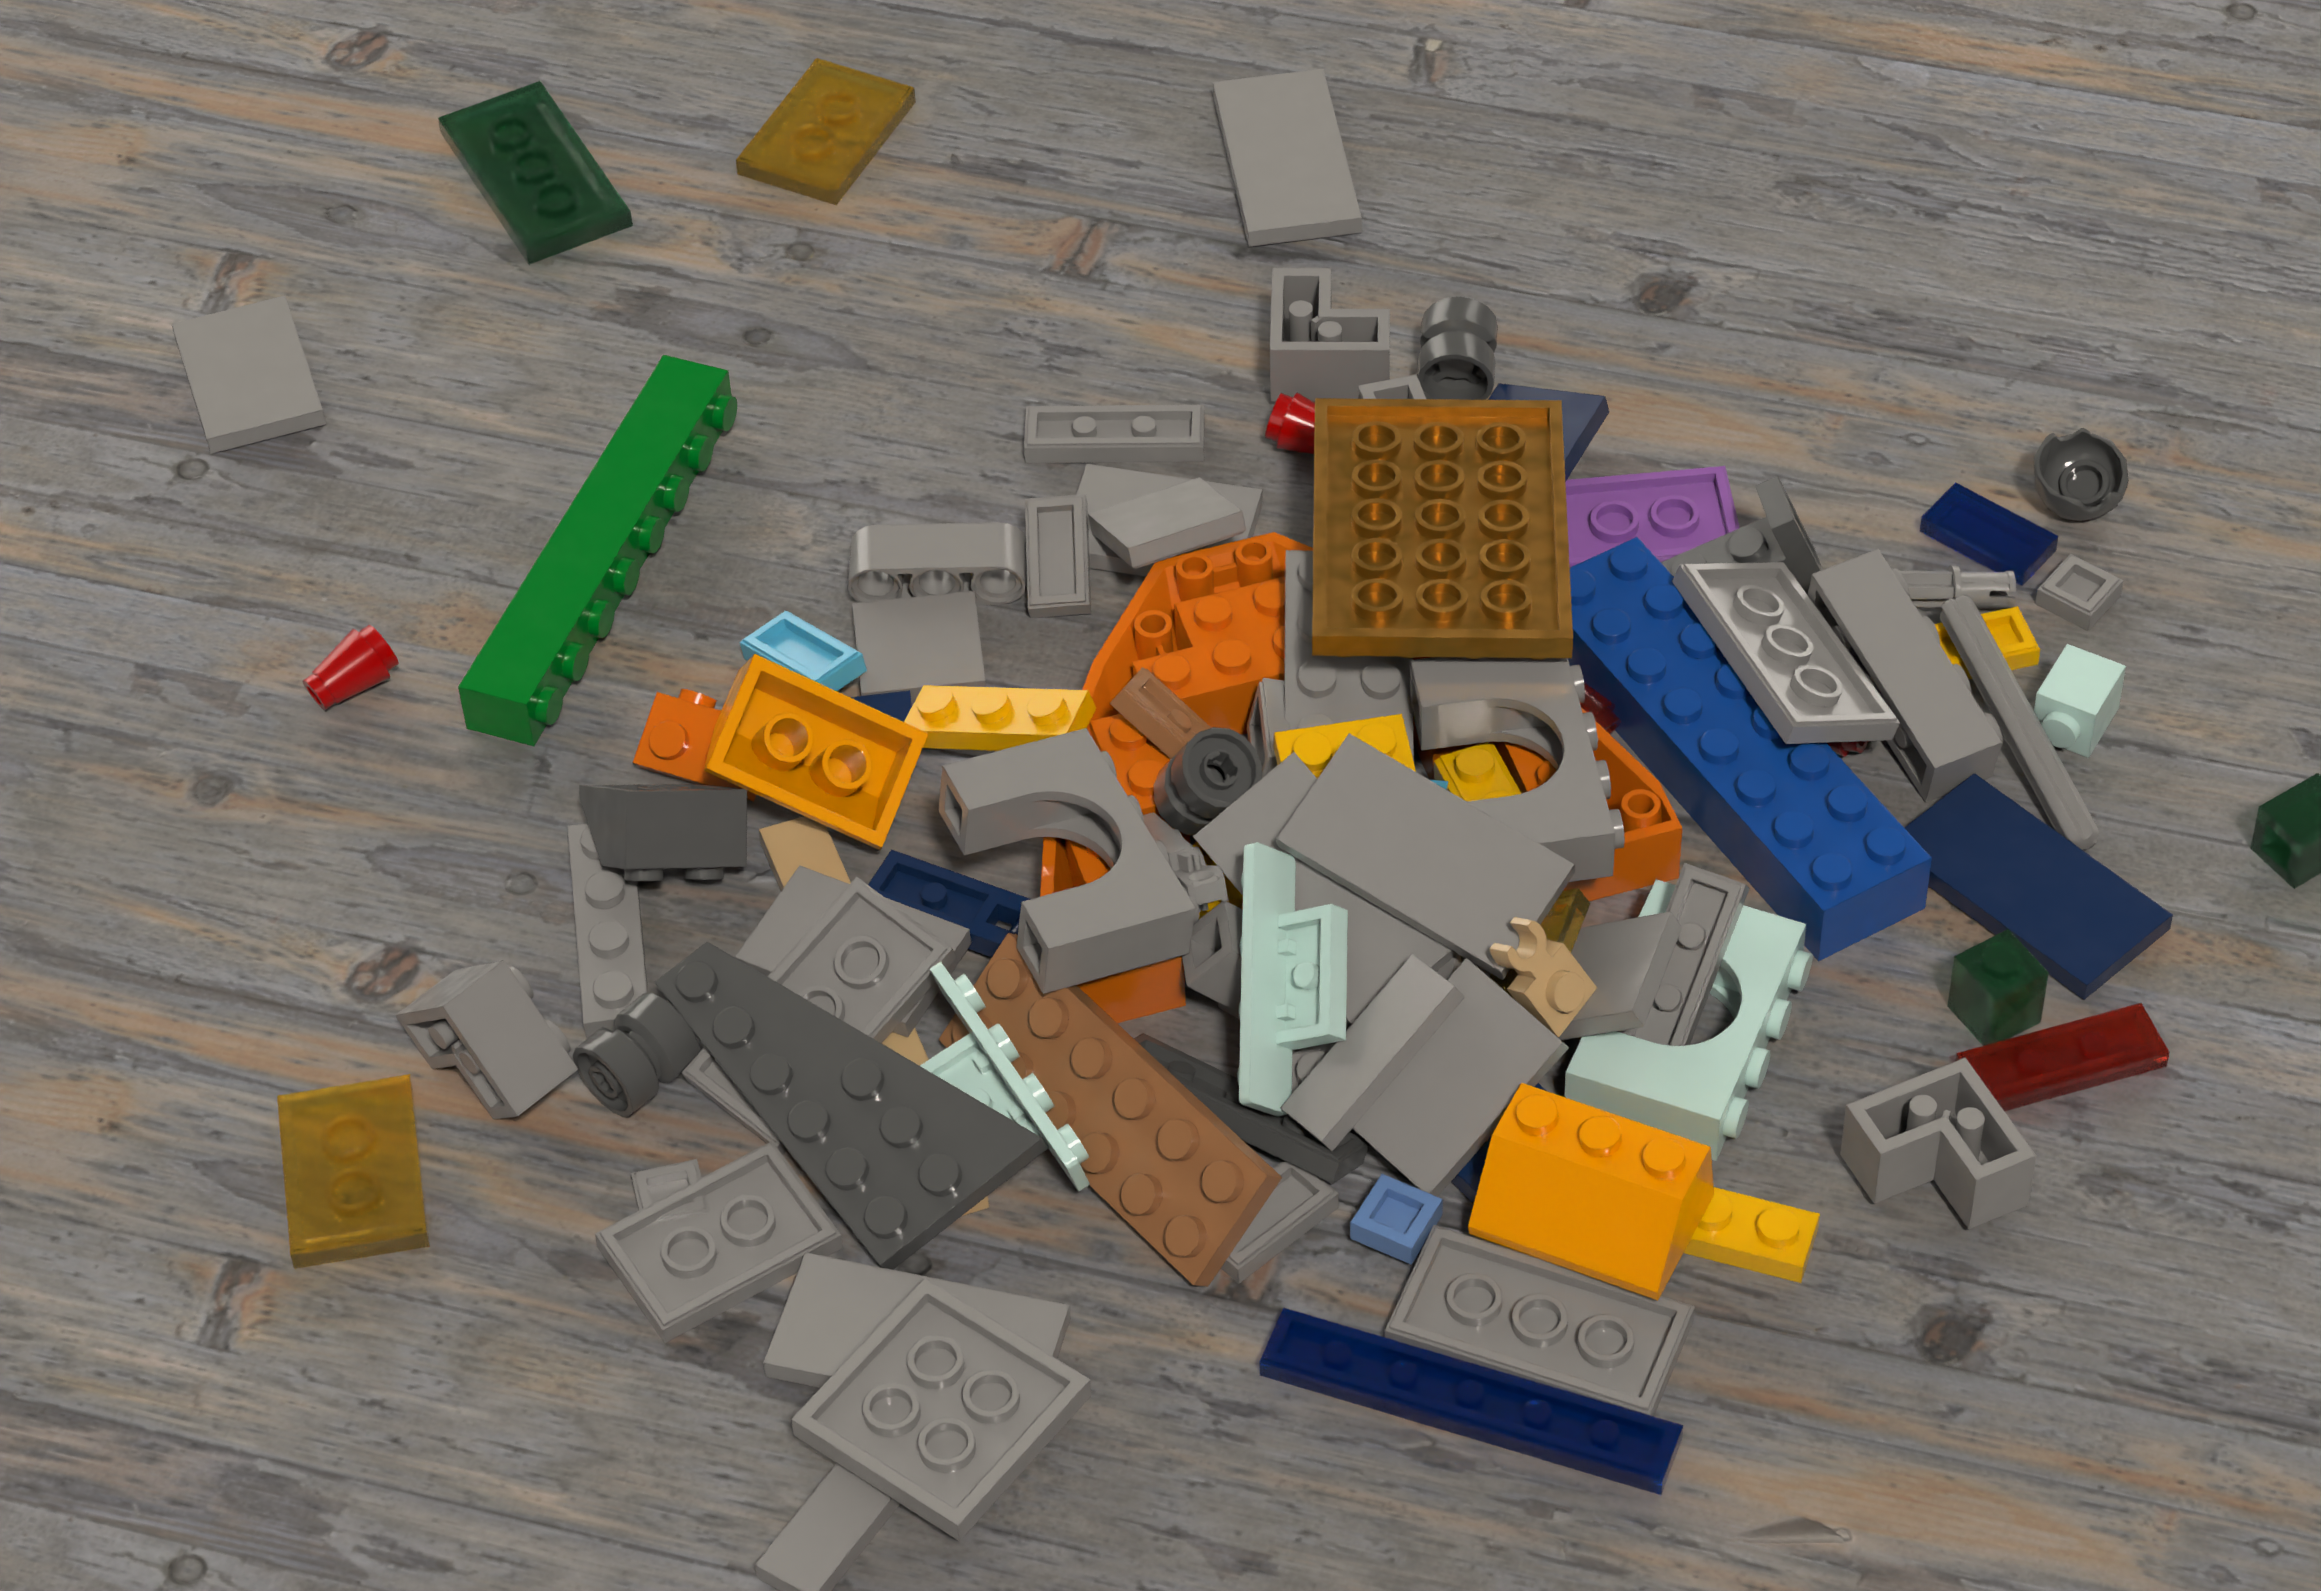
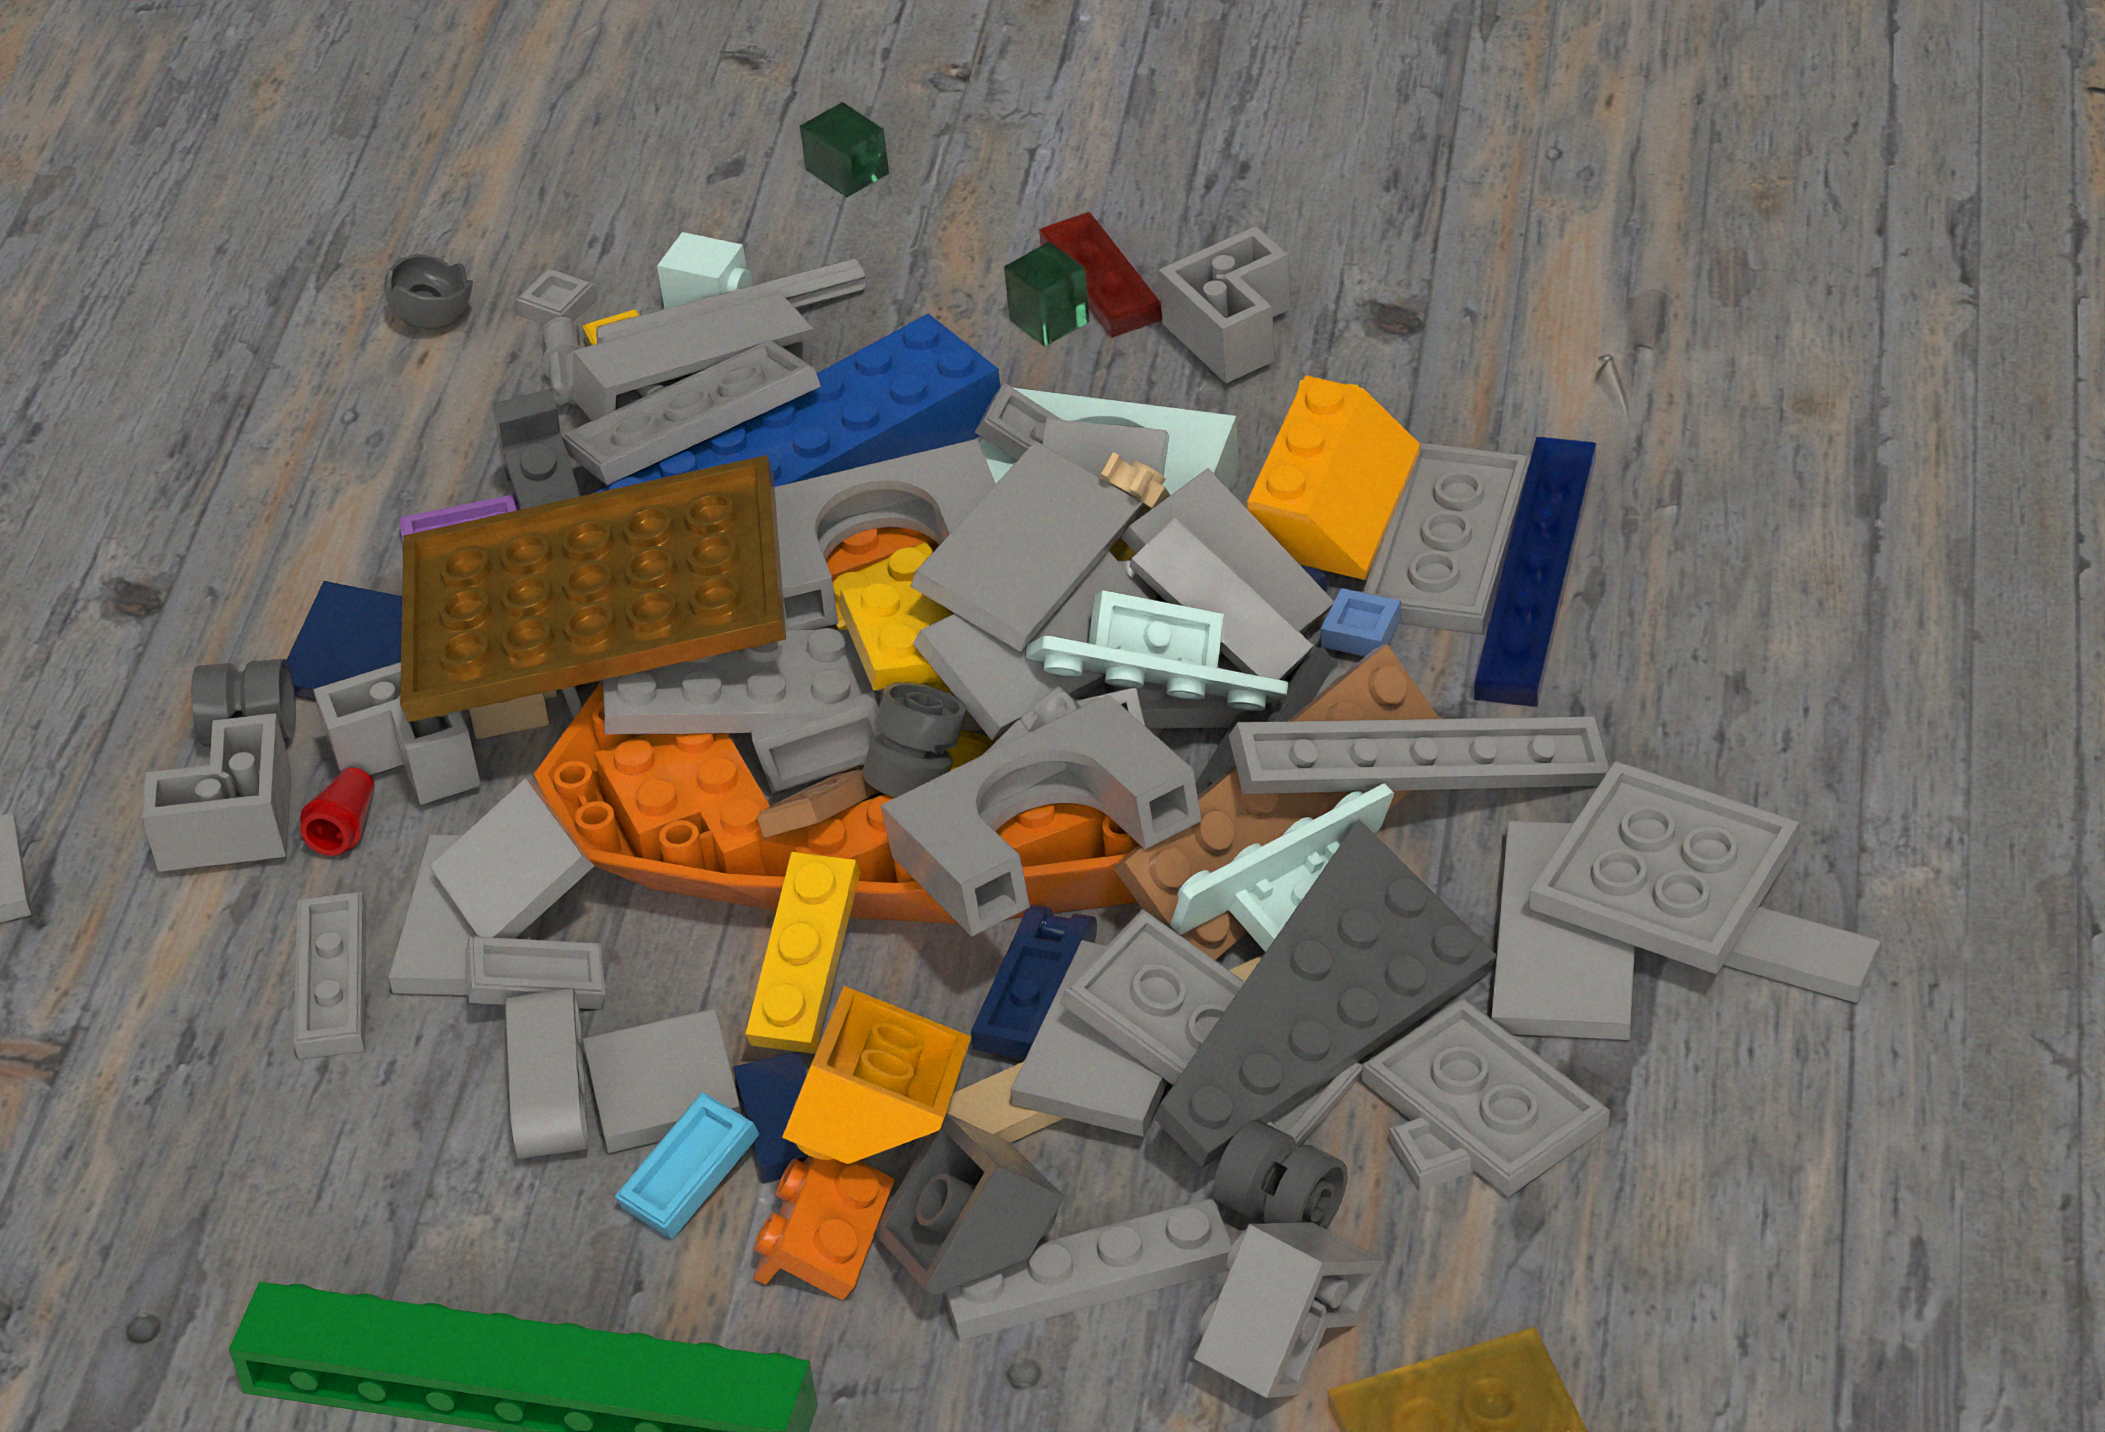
camera: 95 degrees left, 5 degrees down
(1122, 1206) = (1417, 754): none -> light grey plate
(1988, 533) = (484, 354): clear blue tile -> none
(2039, 885) = (936, 273): dark blue tile -> none

